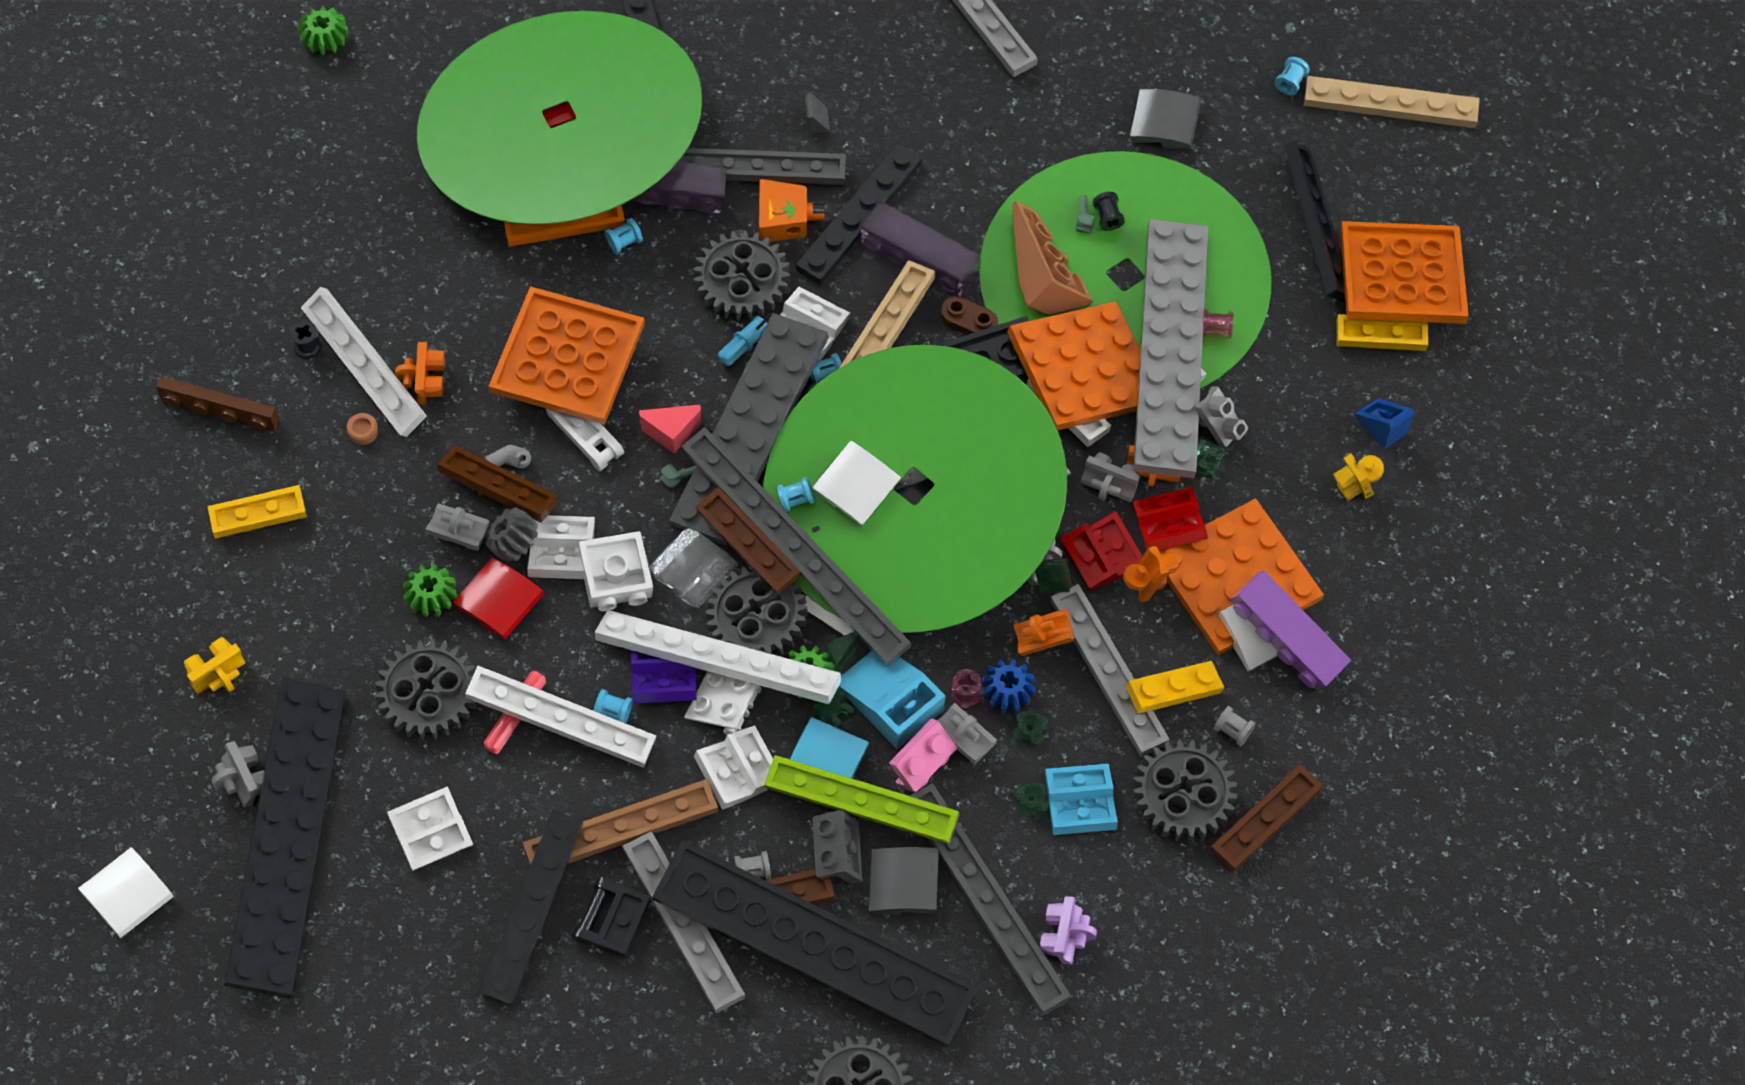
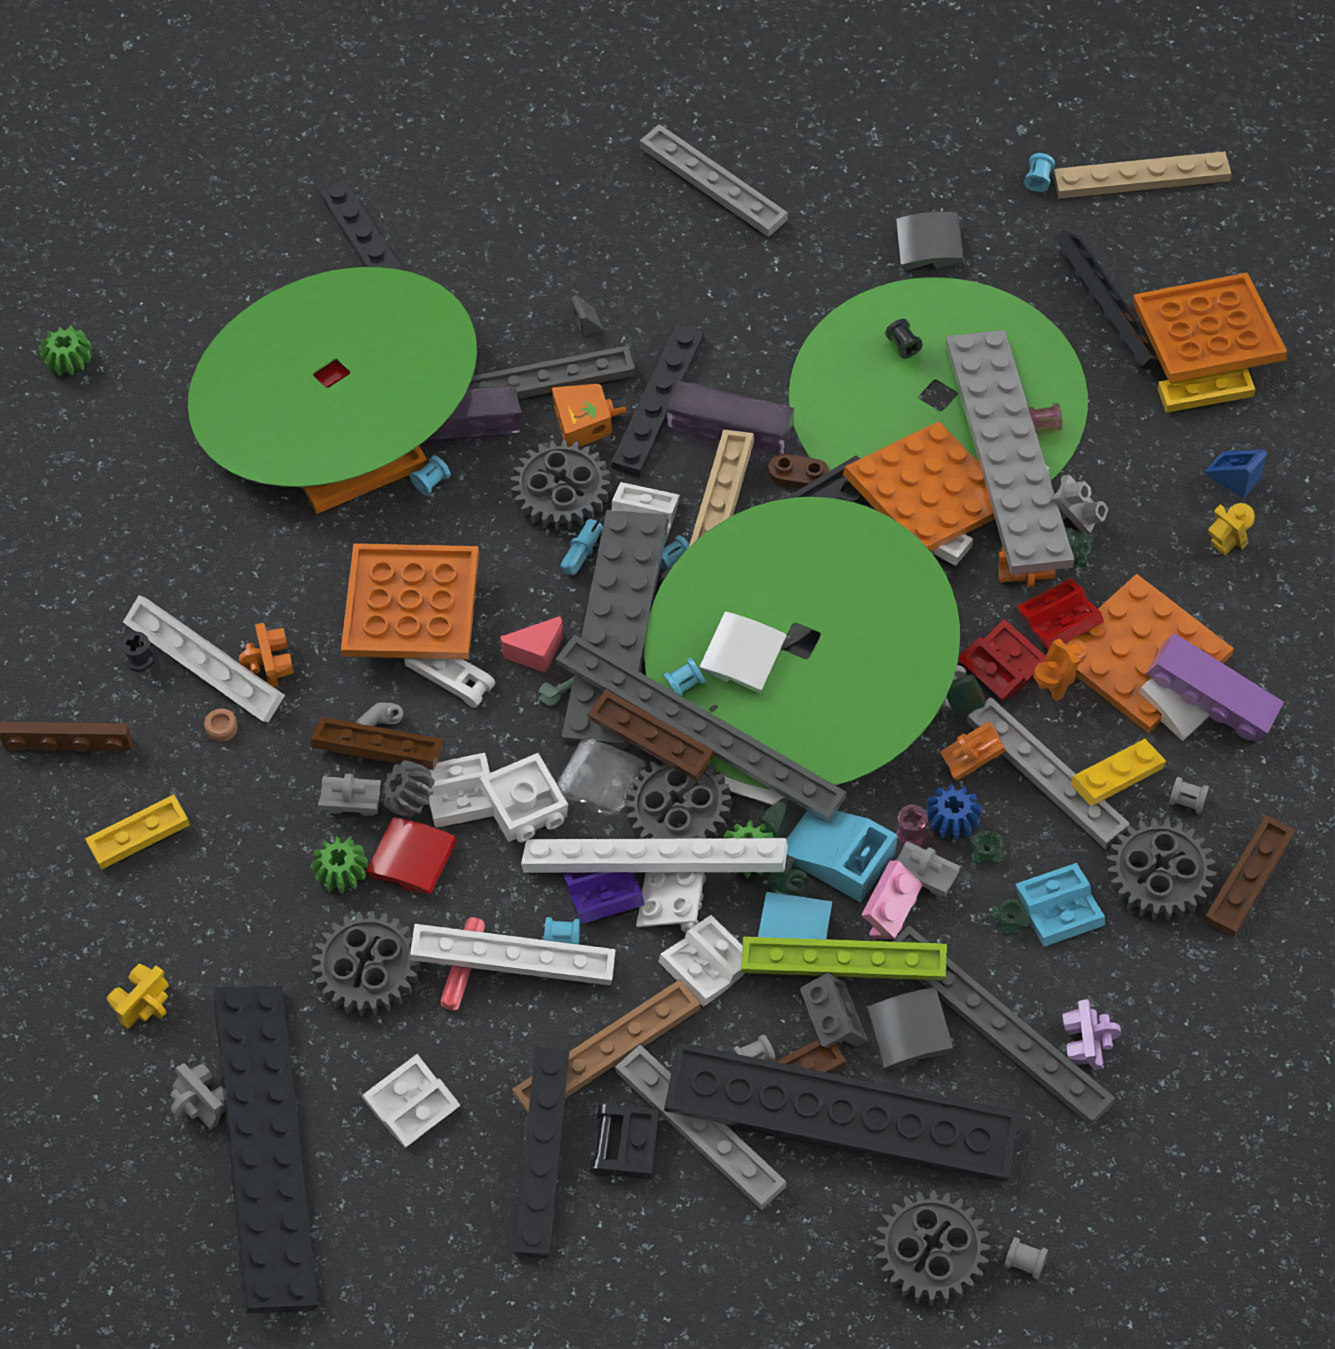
camera: 10 degrees left, 5 degrees down
(126, 892) = (113, 1246): white slope -> none
(1042, 267) = (856, 408): nougat wedge -> none
(1084, 220) = (882, 353): sand green hand -> none
(1109, 478) = (988, 589): light grey hips -> none

